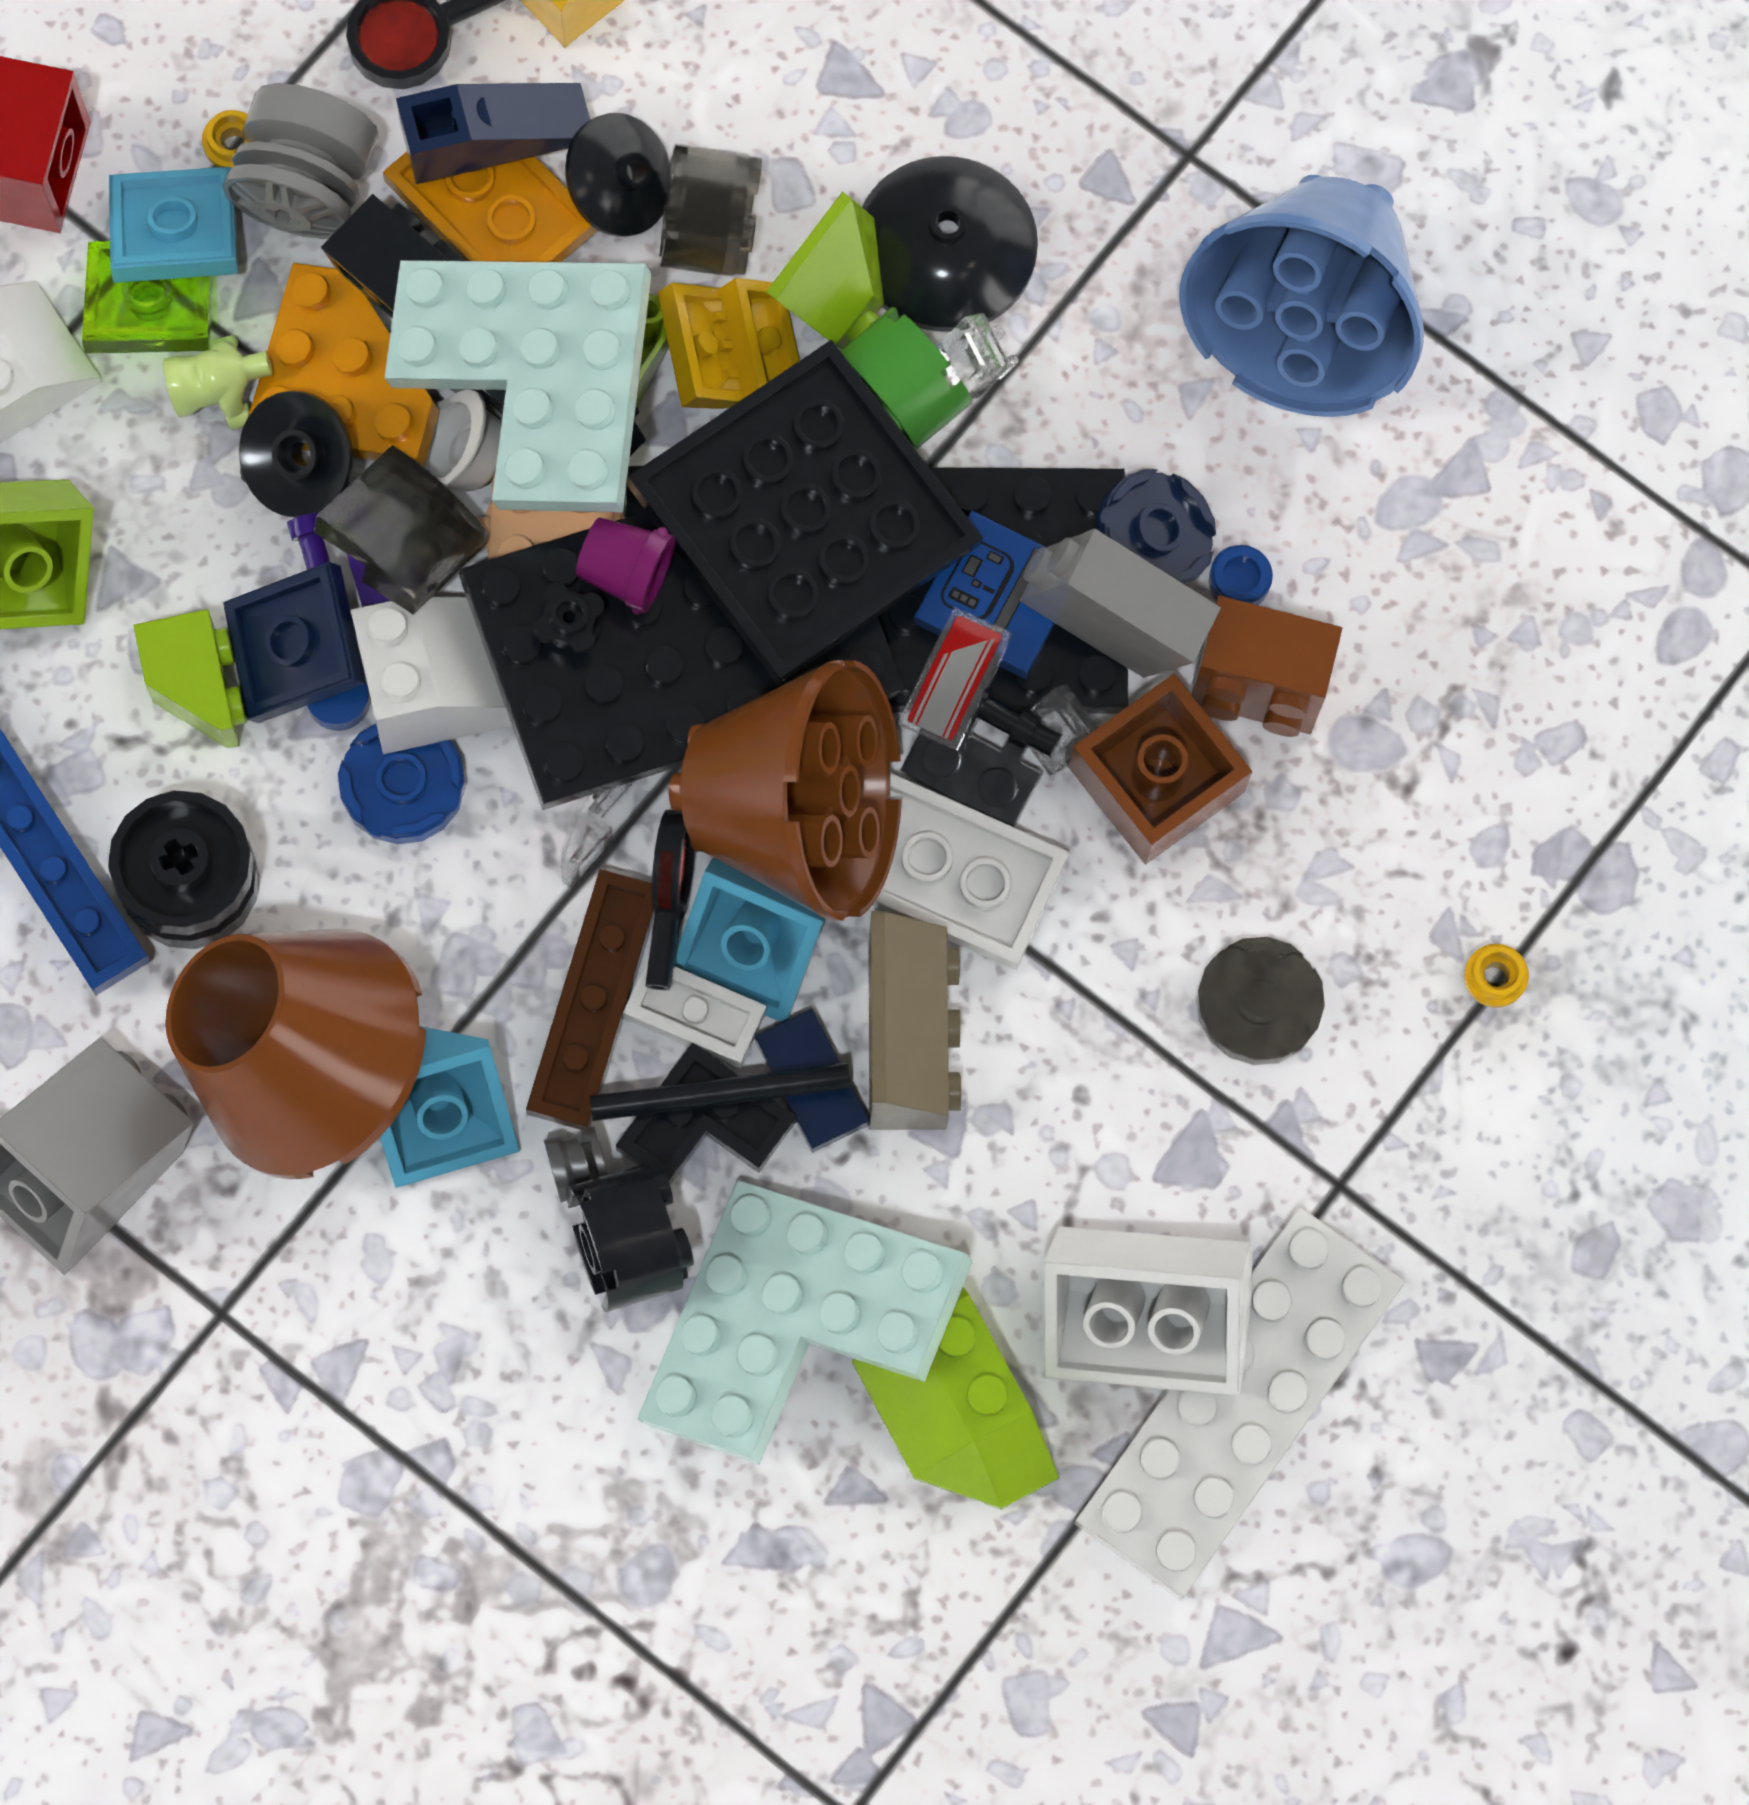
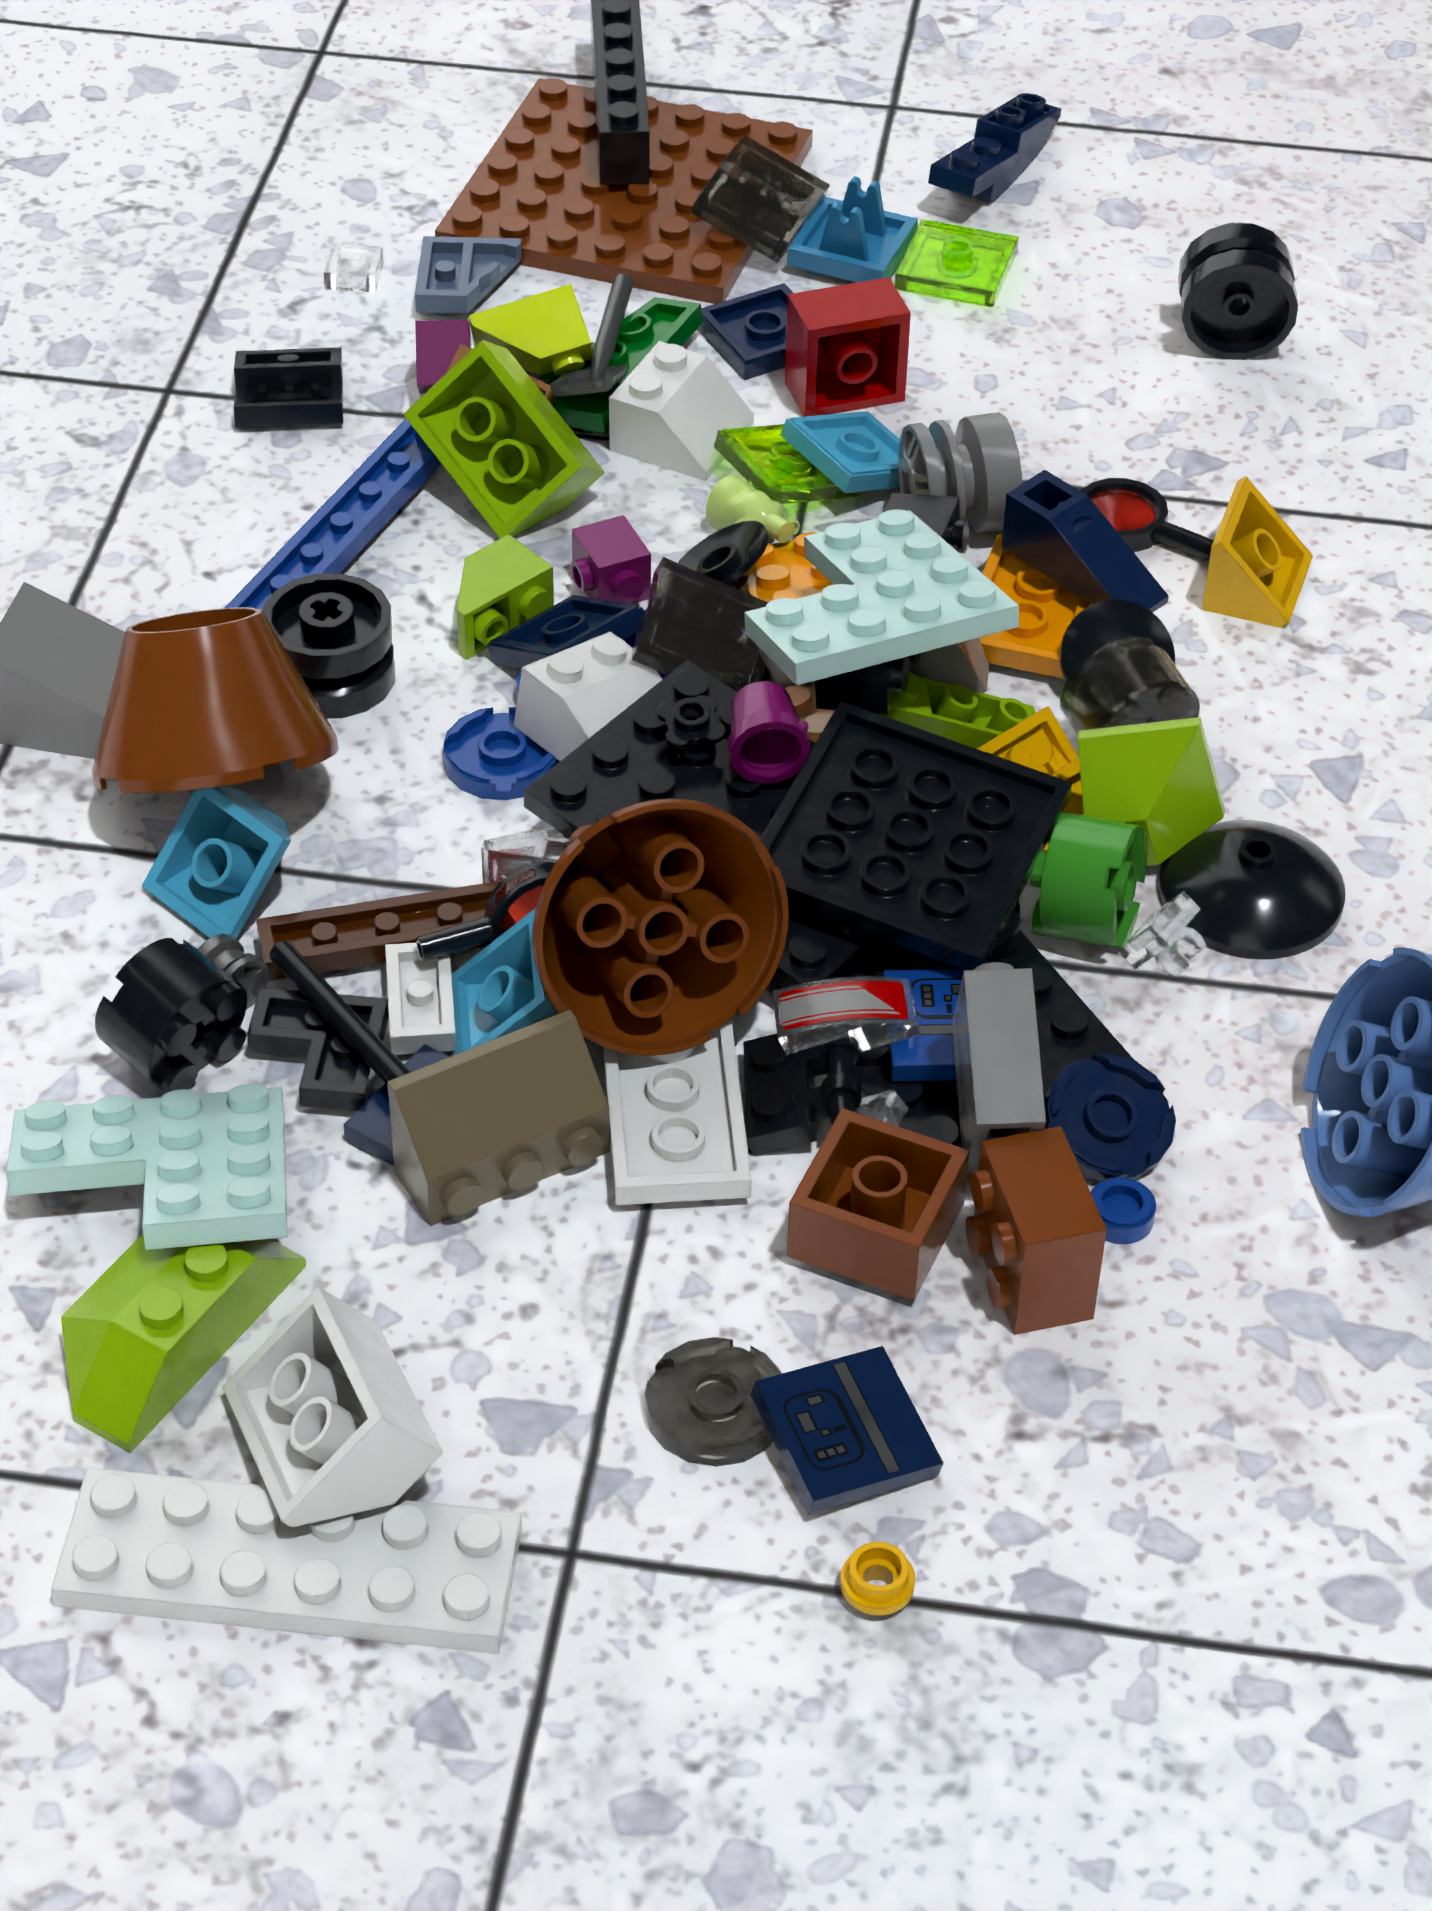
camera: 65 degrees right, 30 degrees down
(208, 547) = (611, 561): none -> magenta brick
(1353, 920) = (846, 1429): none -> dark blue tile

